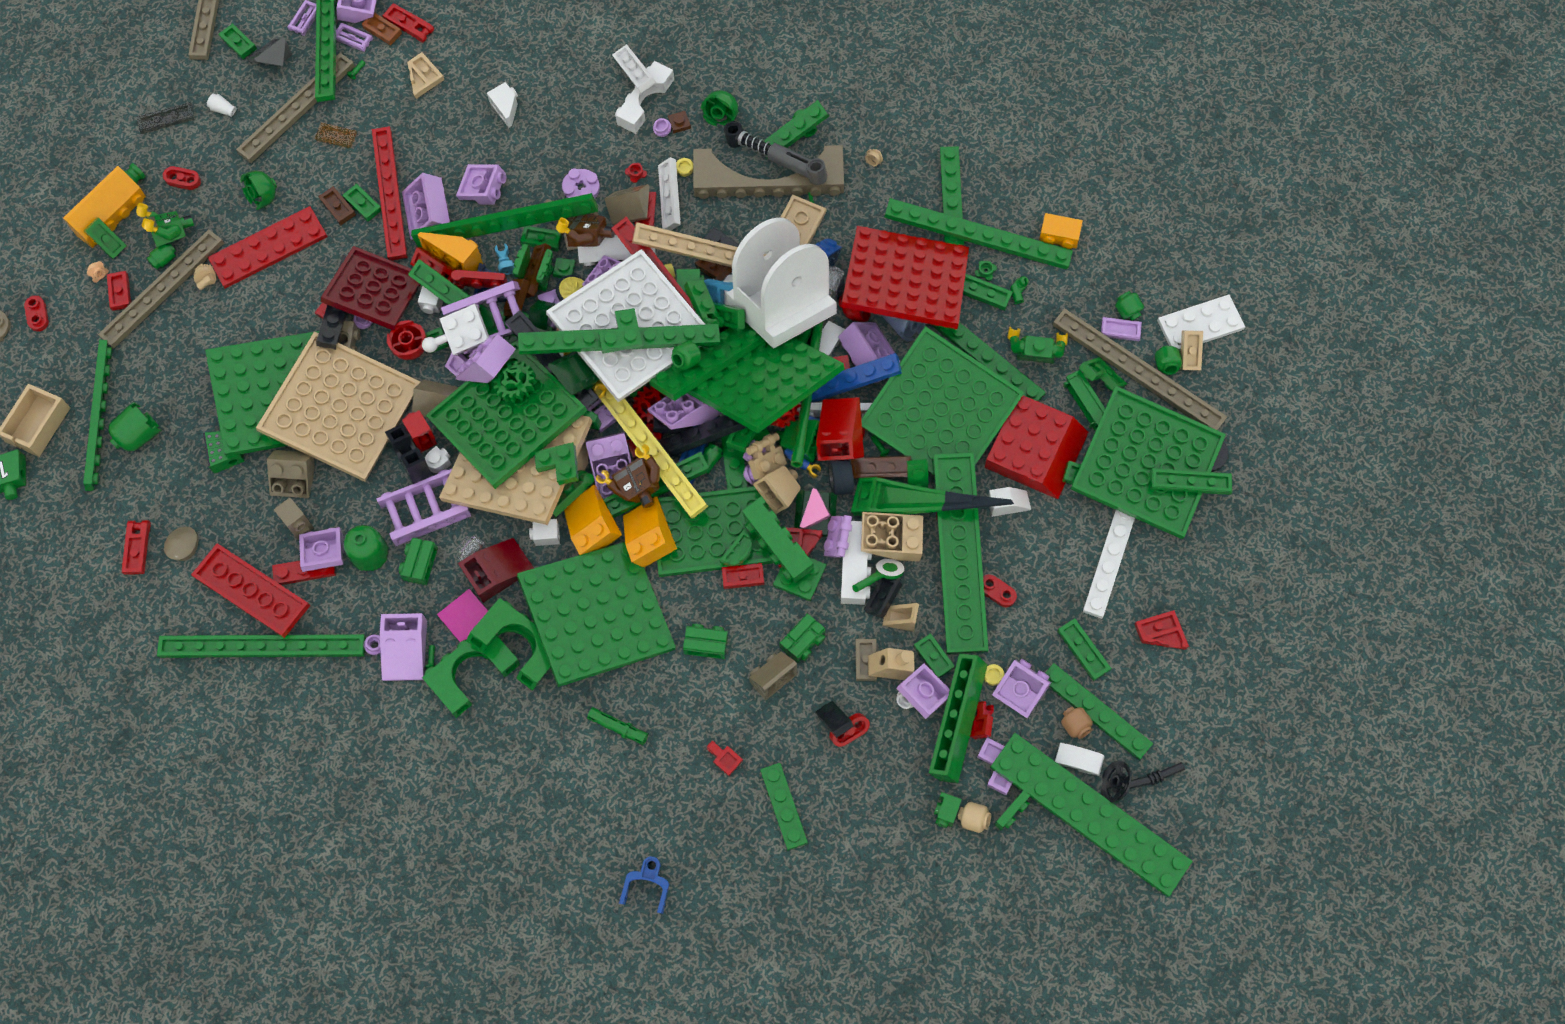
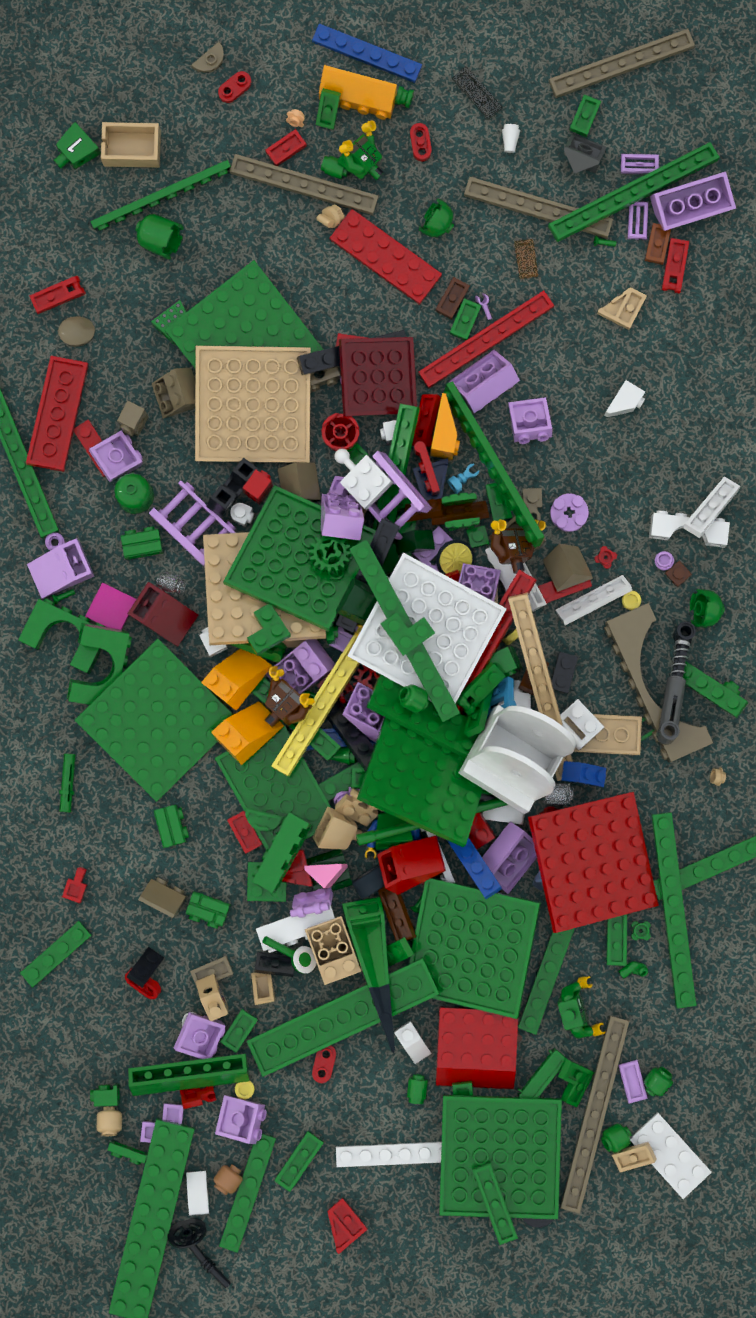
camera: 65 degrees right, 15 degrees up
(73, 193) = (367, 53): none -> blue plate
(352, 180) = (484, 305): none -> lavender hand
(1055, 514) = (417, 1089): none -> green brick
(1060, 231) = (711, 987): light orange brick -> none

